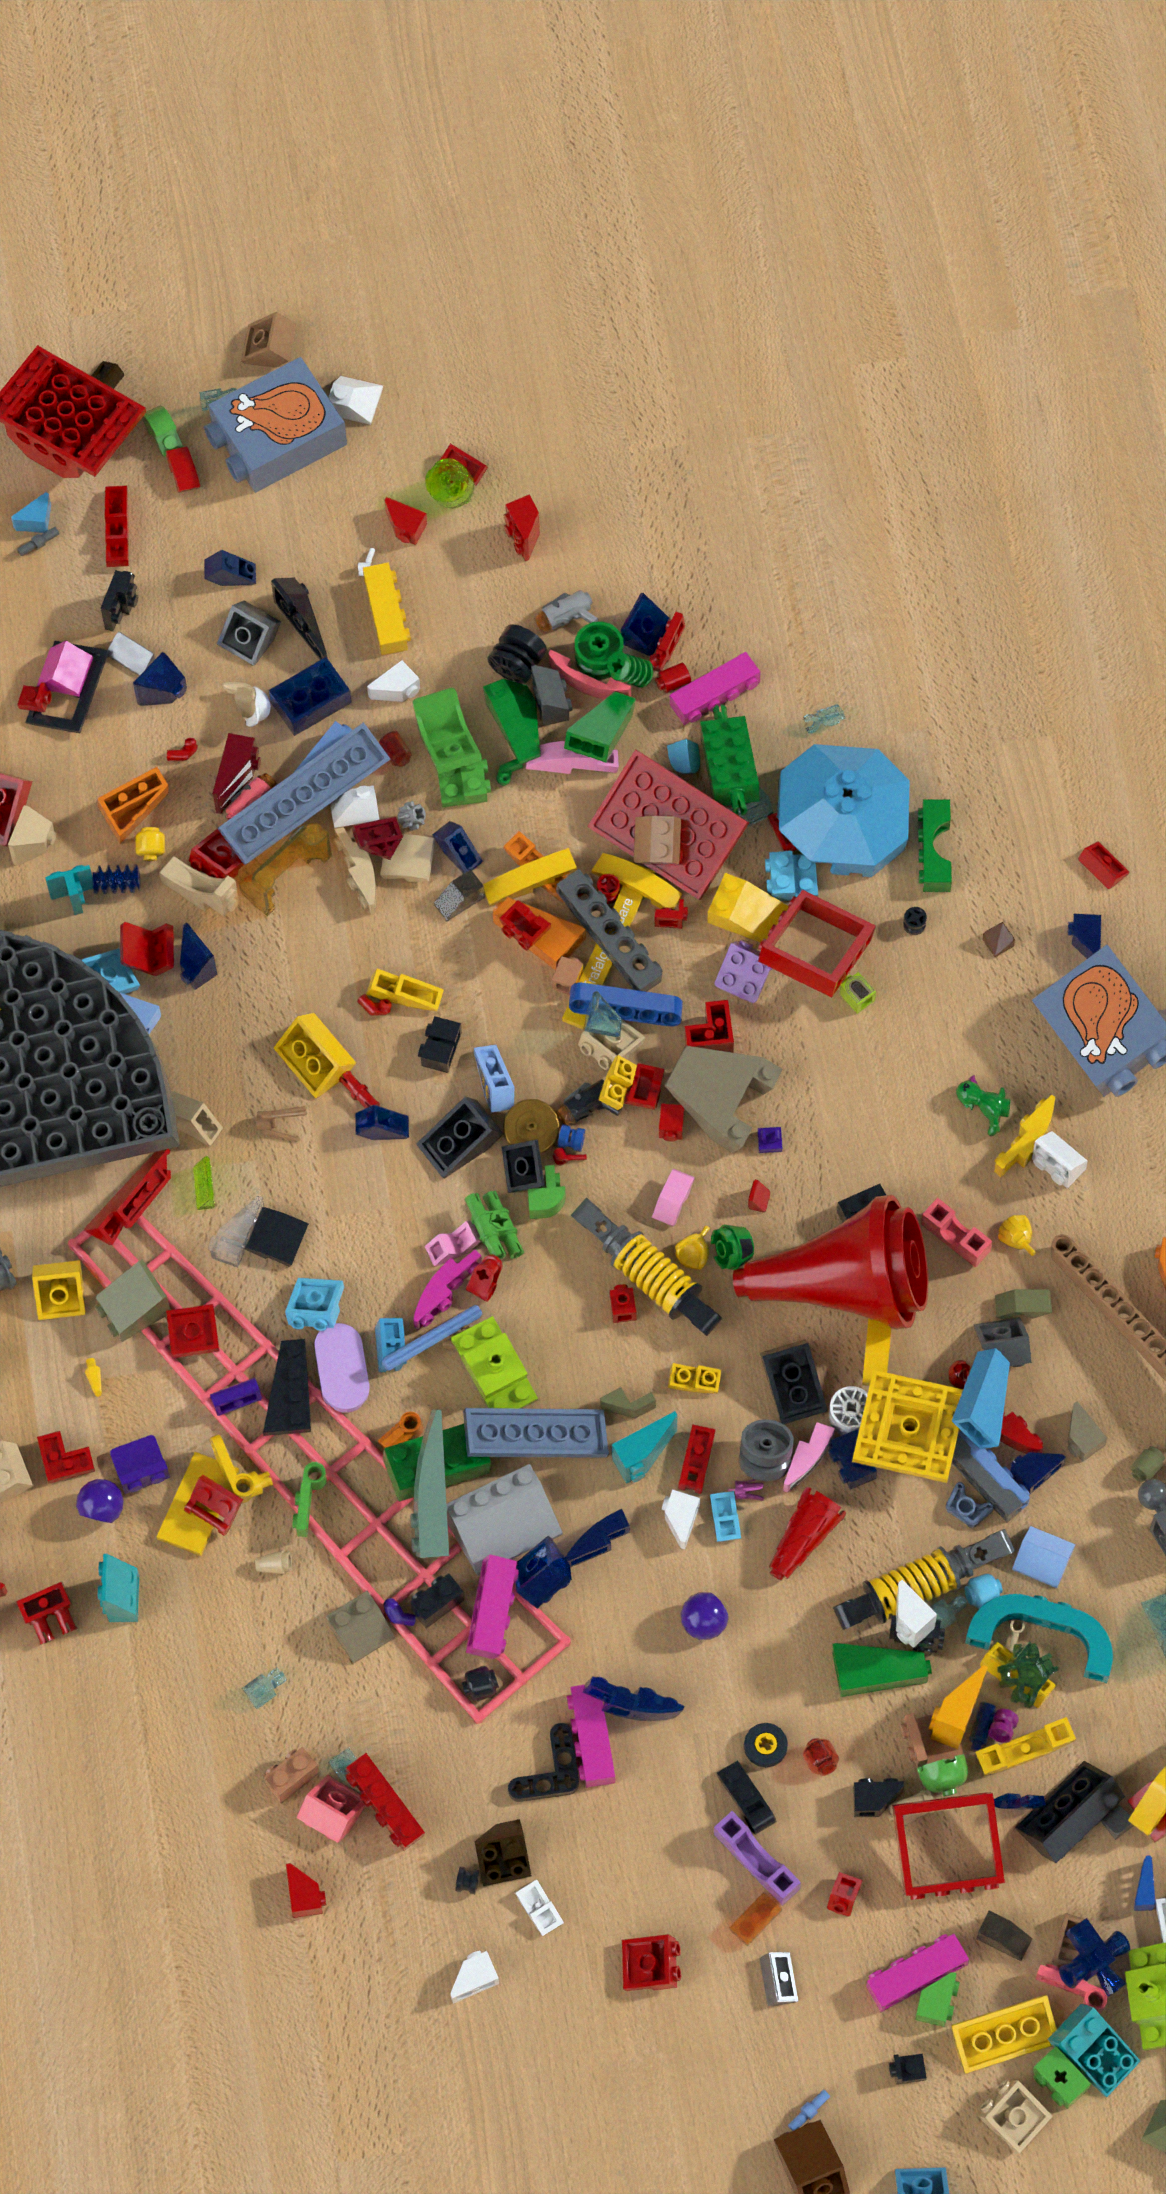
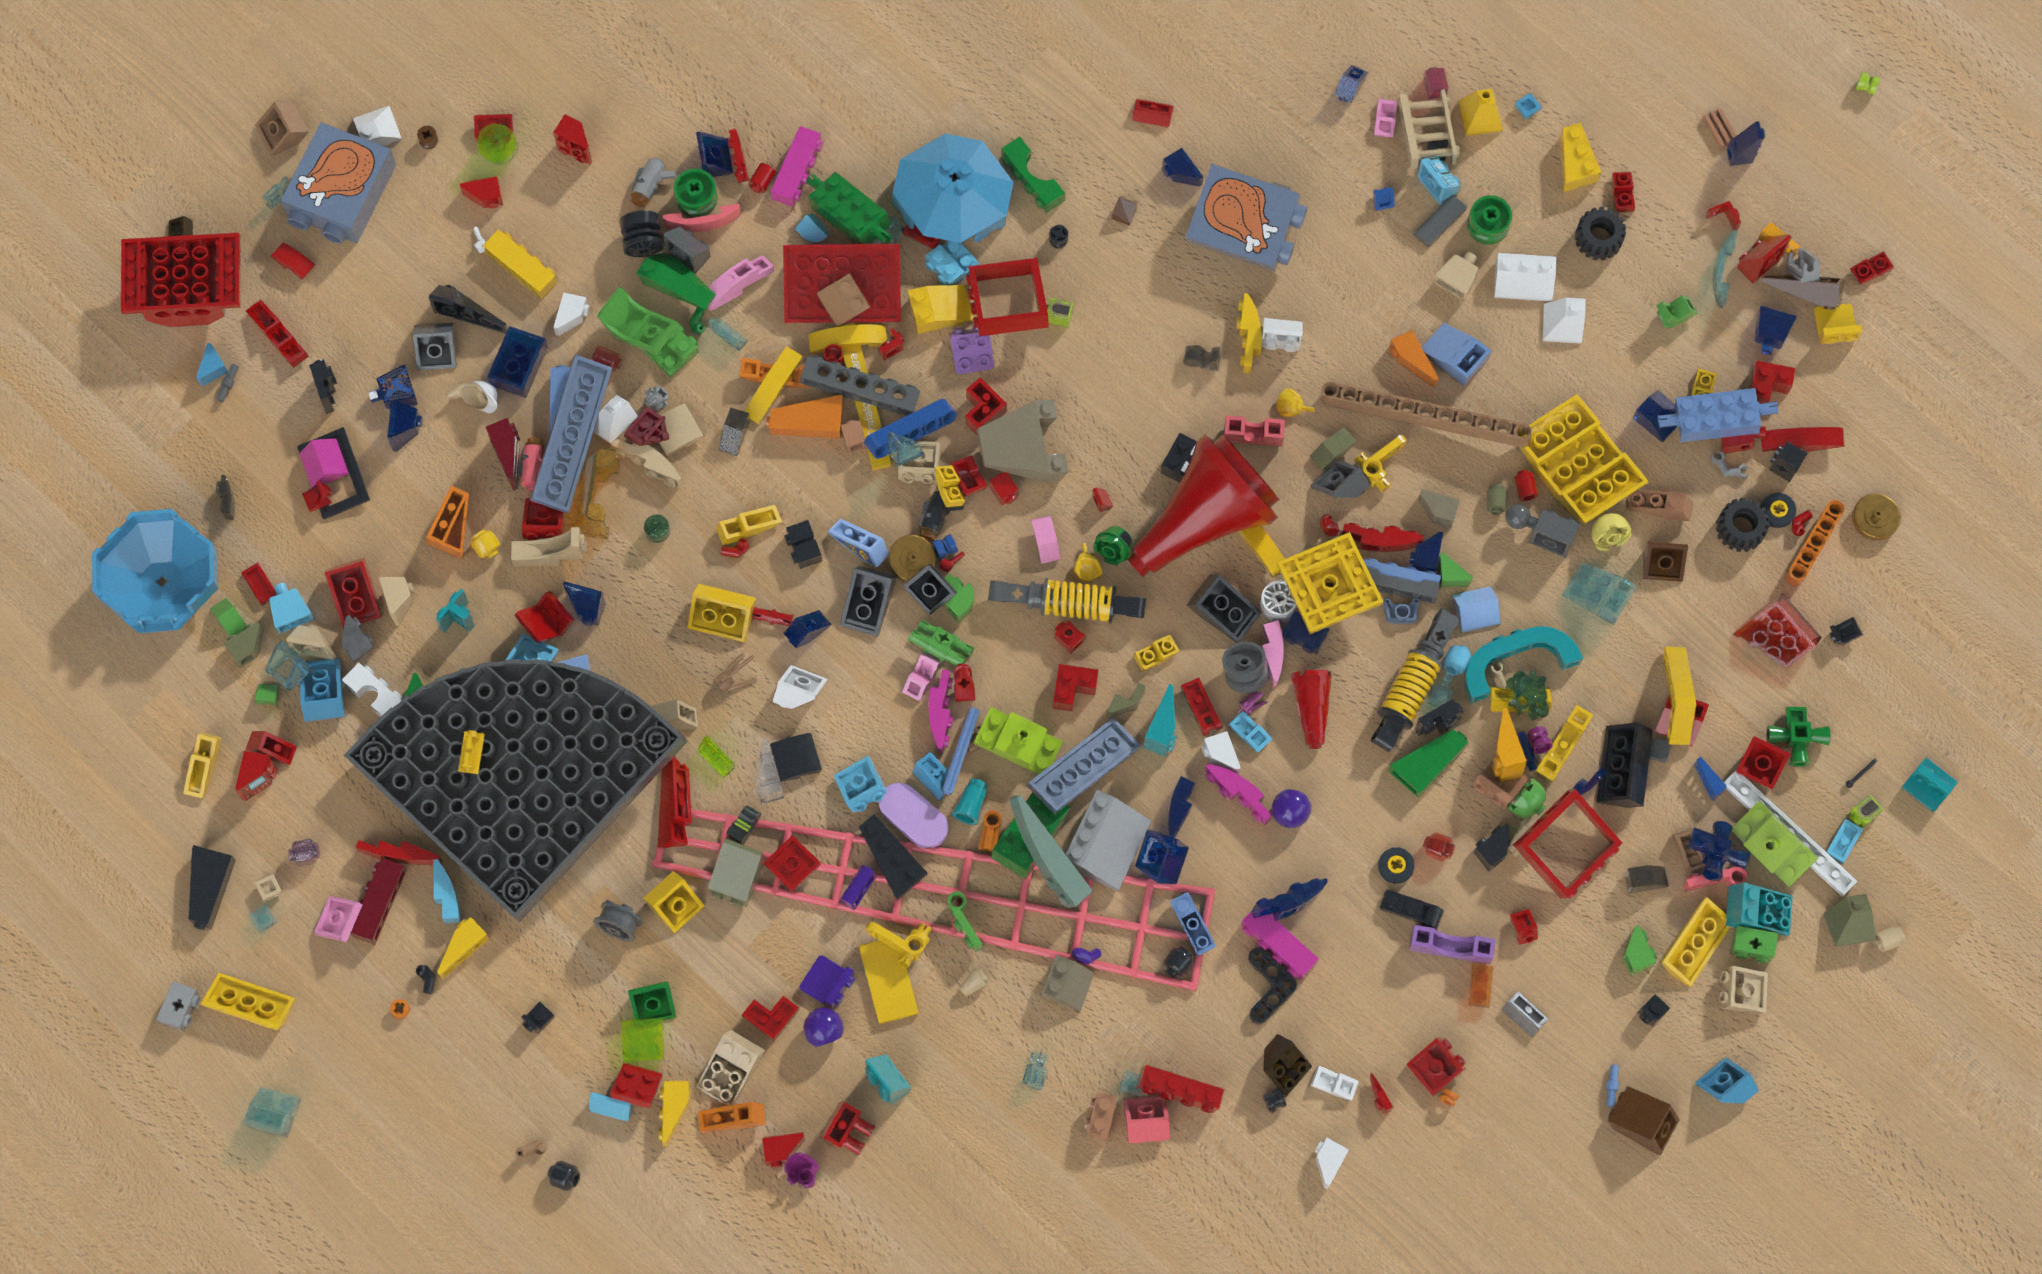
camera: 40 degrees left, 5 degrees up
(94, 1376) = (745, 943): yellow bar -> none
(116, 879) = (482, 585): clear blue piece -> none
(130, 654) = (361, 418): slope -> none
(162, 428) = (257, 241): bright green brick -> none
(176, 1264) = (744, 825): none -> pearl dark grey leg
(182, 646) = (394, 386): none -> torso
(185, 752) = (457, 462): red arm -> none
(216, 1499) = (904, 967): red plate -> none
(229, 569) = (385, 310): dark blue slope -> none
(304, 1893) = (1173, 1190): red slope -> none
(316, 936) = (657, 528): none -> clear green head
(328, 1172) = (797, 687): none -> white slope
(392, 442) = (430, 141): none -> reddish brown wheel
(404, 1393) = (971, 802): none -> teal plant
(436, 1600) = (1107, 928): black brick -> none
(457, 846) = (705, 398): clear blue slope -> none
(492, 1606) = (1148, 905): dark pink brick -> none
(522, 1654) = (1193, 923): none -> medium blue slope
(523, 925) = (801, 421): red cylinder -> none
(527, 801) = (727, 333): none -> clear light blue slope
(569, 1957) = (1381, 1100): none -> red plate
(588, 1346) = (1071, 681): none -> red brick
(601, 728) = (743, 246): green slope -> none
(630, 669) = (730, 191): green piece -> none
(637, 2001) = (1448, 1097): none -> orange bush
(668, 1557) = (1234, 785): none -> dark pink slope
(769, 1140) = (1078, 454): dark purple tile -> none
(828, 716) = (888, 134): clear light blue plate -> none
(913, 1616) = (1436, 708): white slope -> none
(916, 1972) = (1611, 943): dark pink brick -> none
(961, 1127) = (1198, 357): none -> clear smoke leg
(983, 1399) = (1364, 530): dark azure slope -> none
(990, 1103) = (1207, 327): green animal -> none
(1044, 1505) = (1451, 573): none -> bright green slope
(1059, 1343) = (1375, 461): none -> yellow piece

